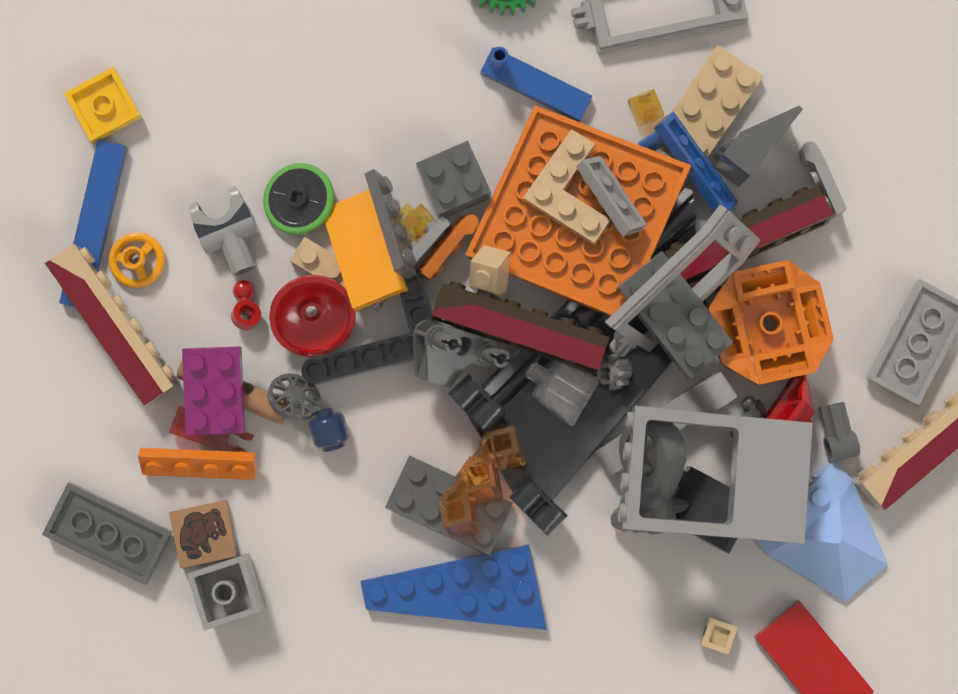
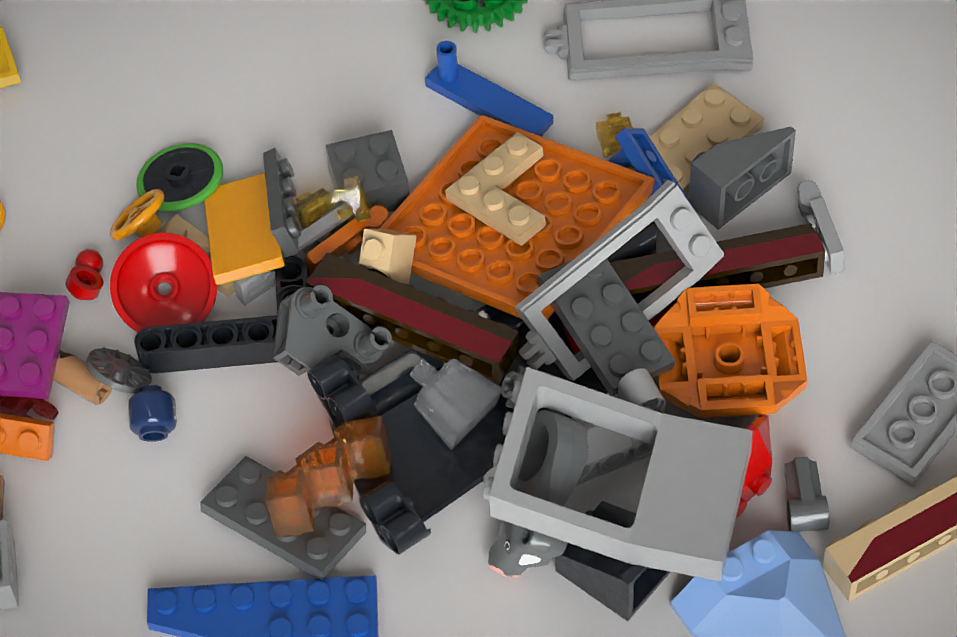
camera: 15 degrees right, 30 degrees down
(228, 232) = (87, 199): light grey connector -> none
(280, 250) = (139, 216): none -> light orange piece
(450, 220) = (354, 197): none -> clear yellow tile
(611, 196) = (550, 193): light grey plate -> none

